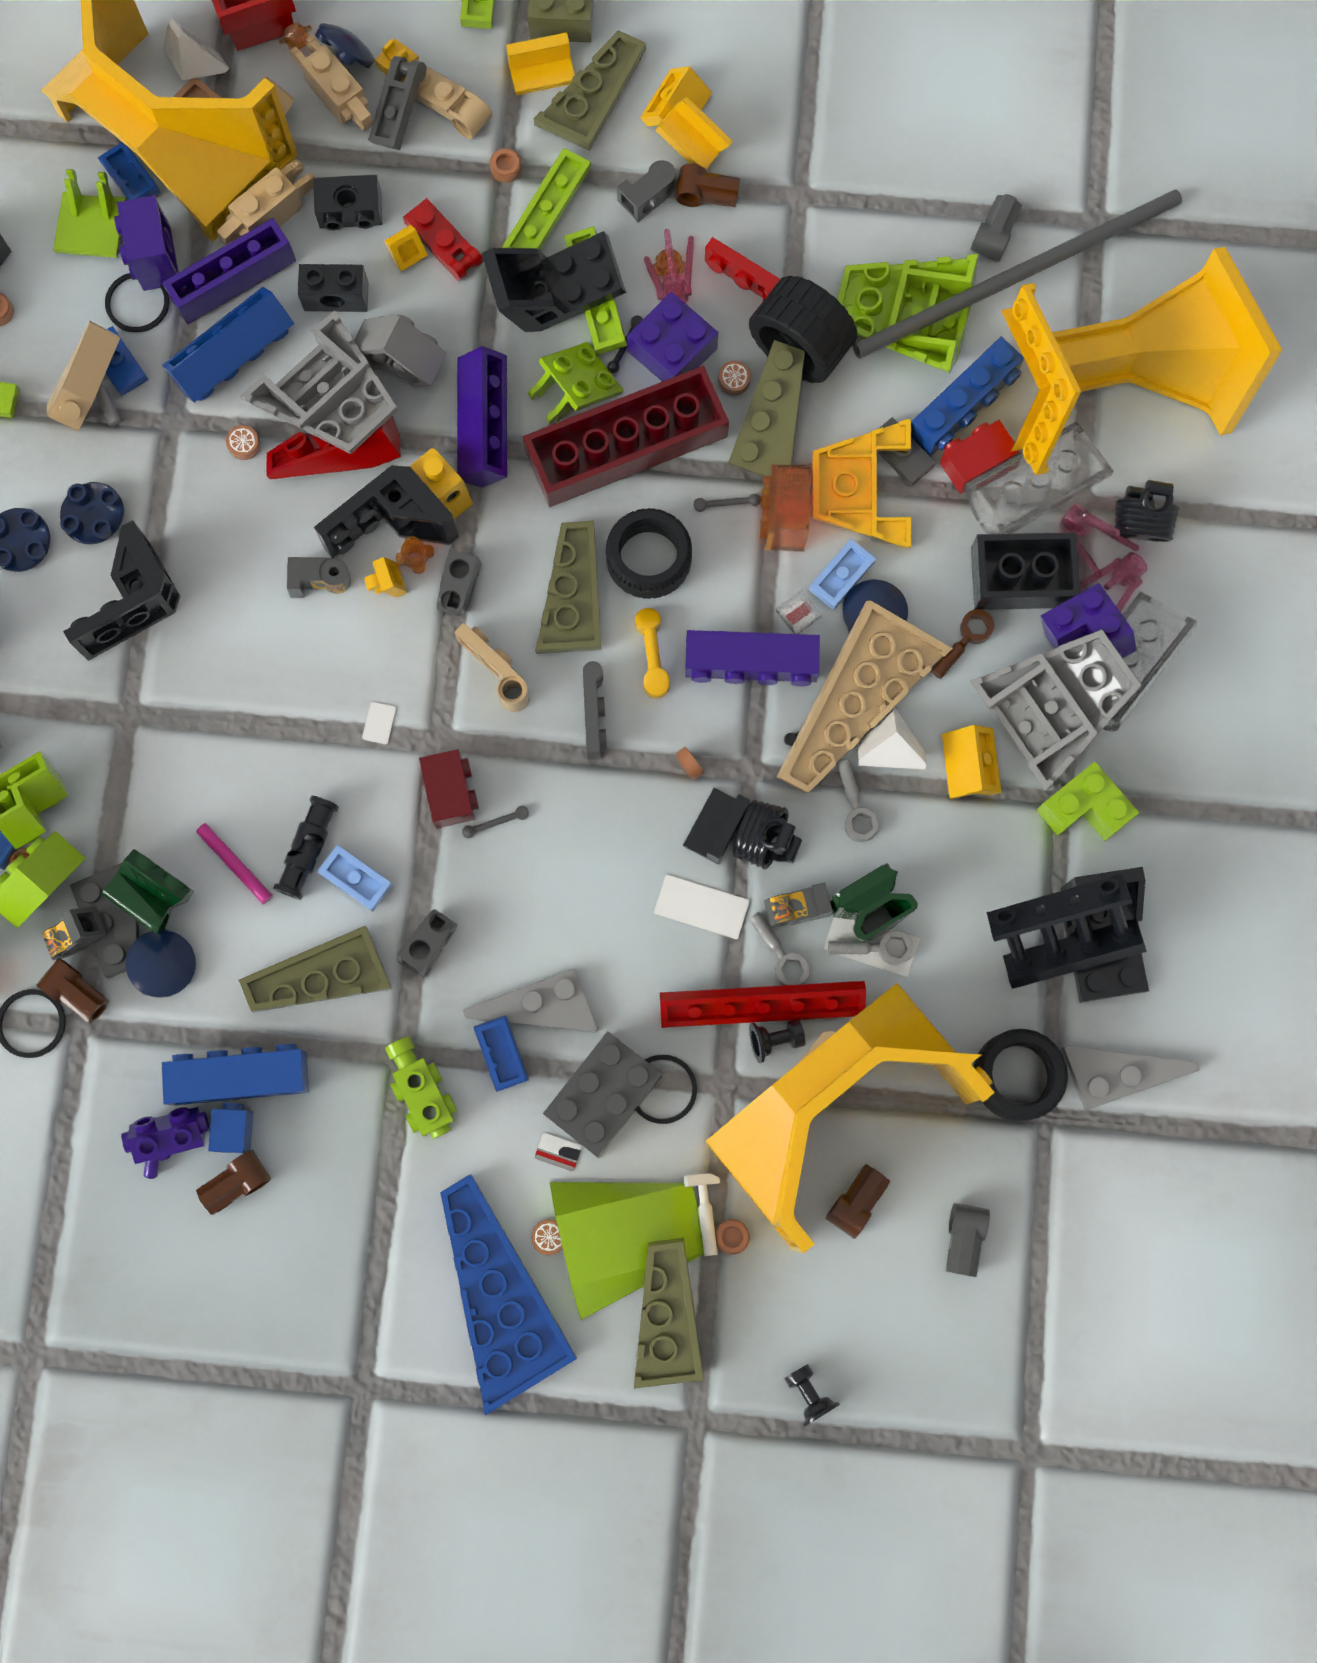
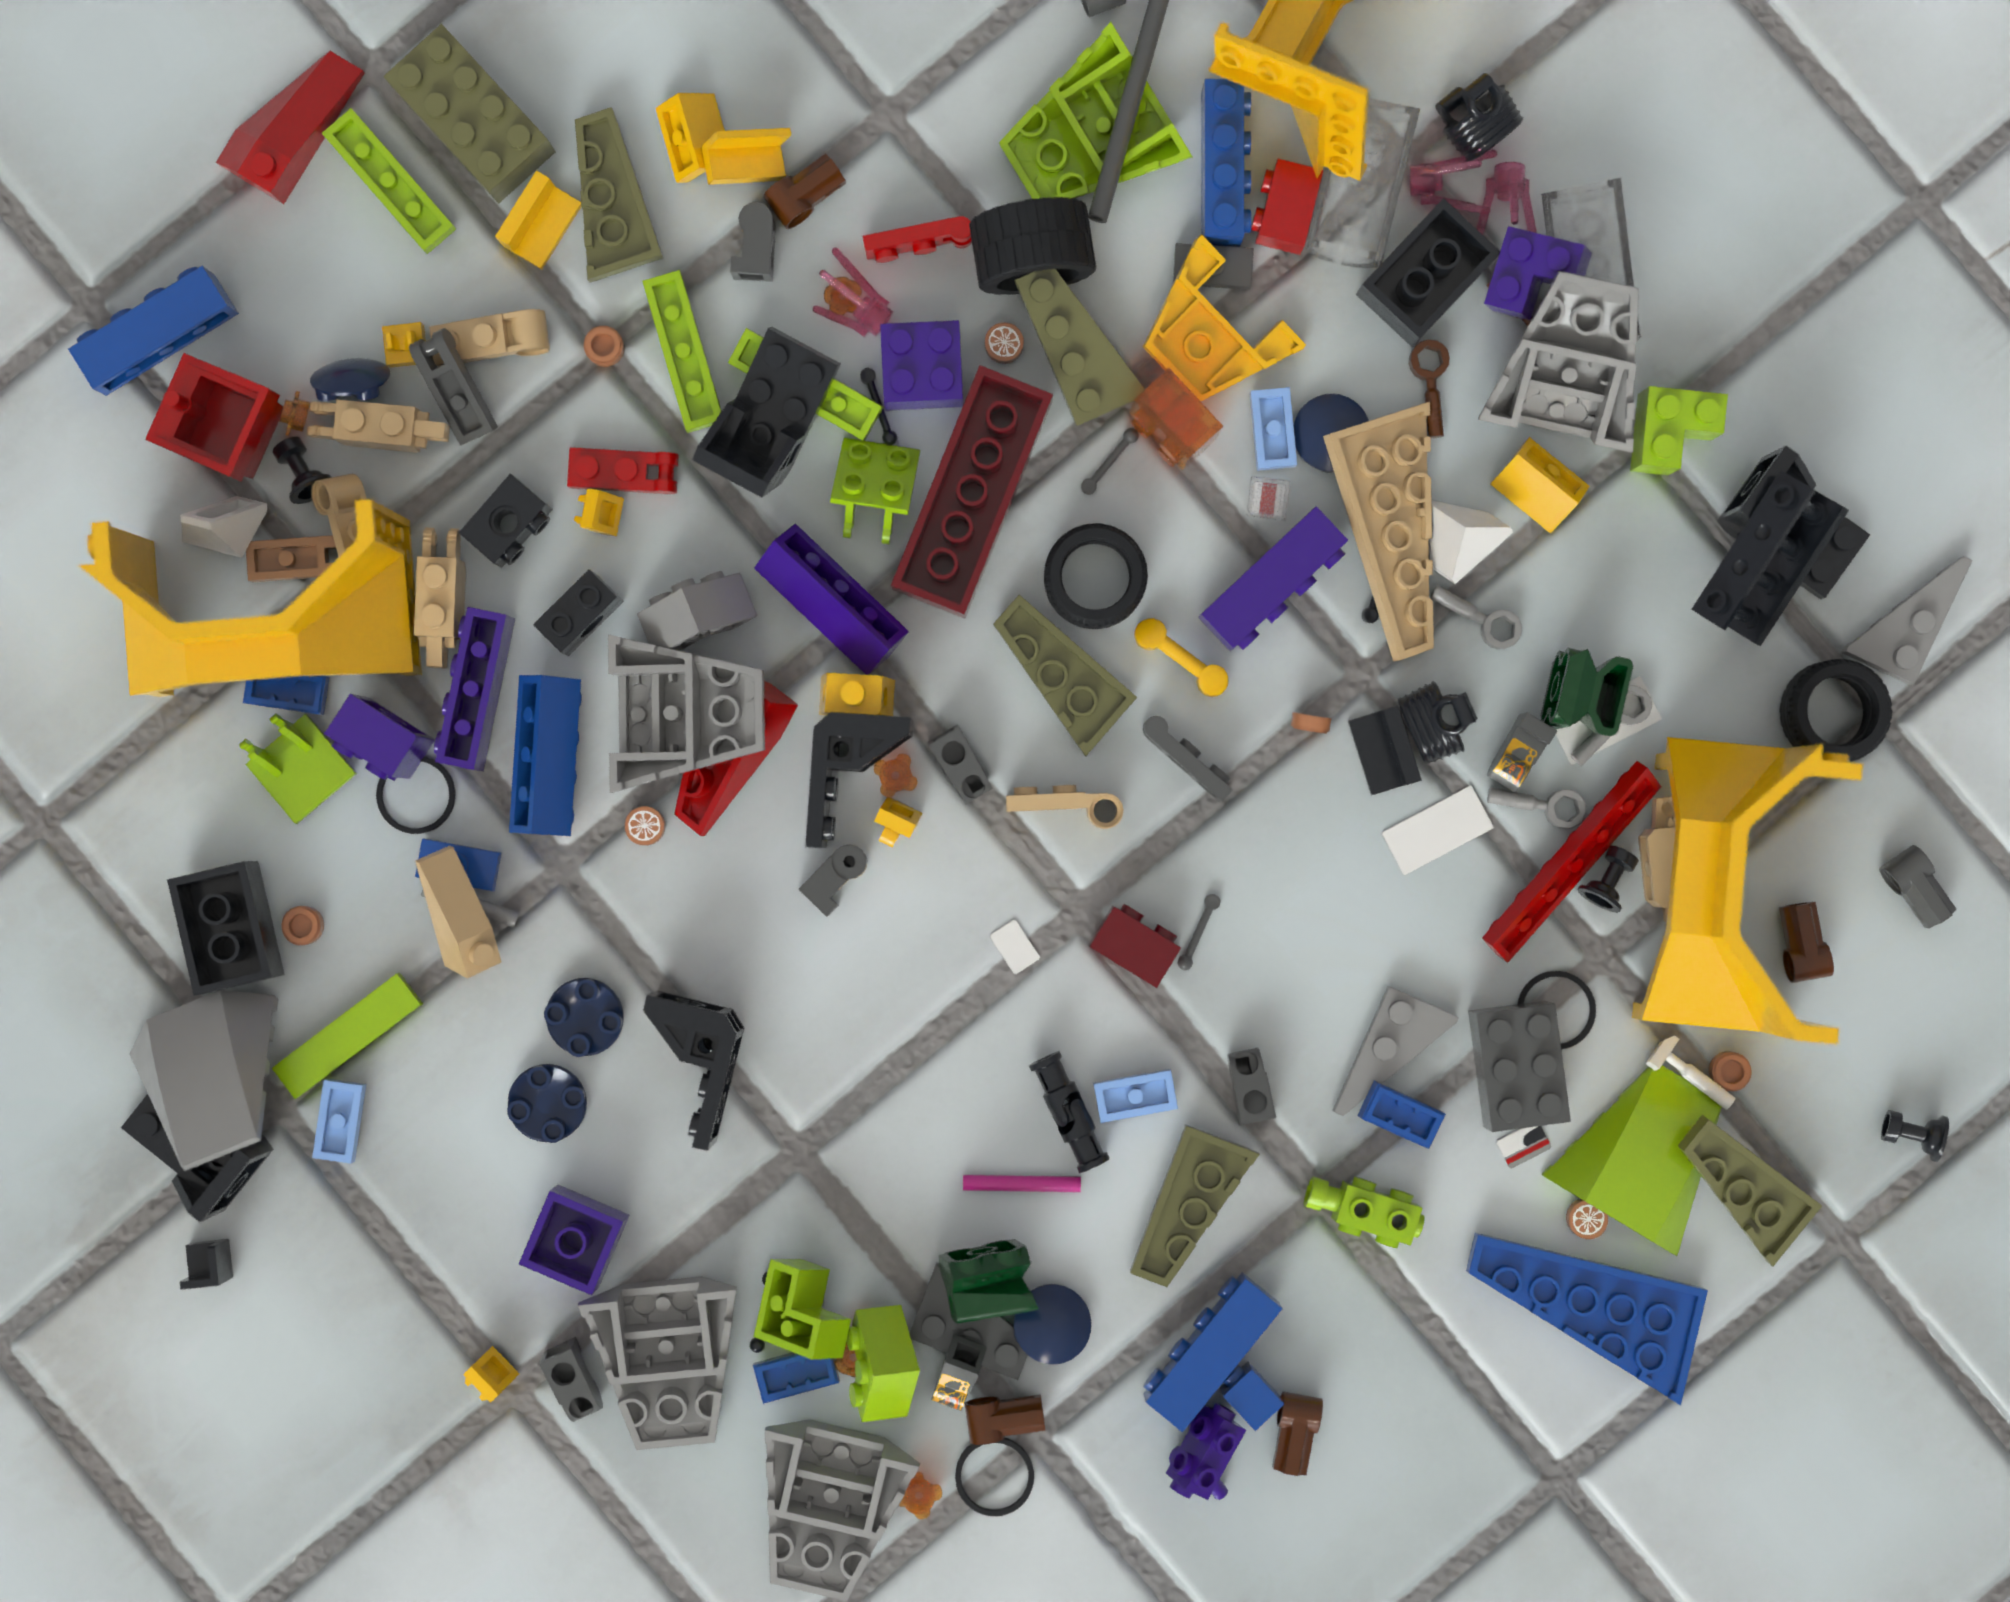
camera: 45 degrees left, 10 degrees up
(272, 55) = (291, 452): none -> black piece

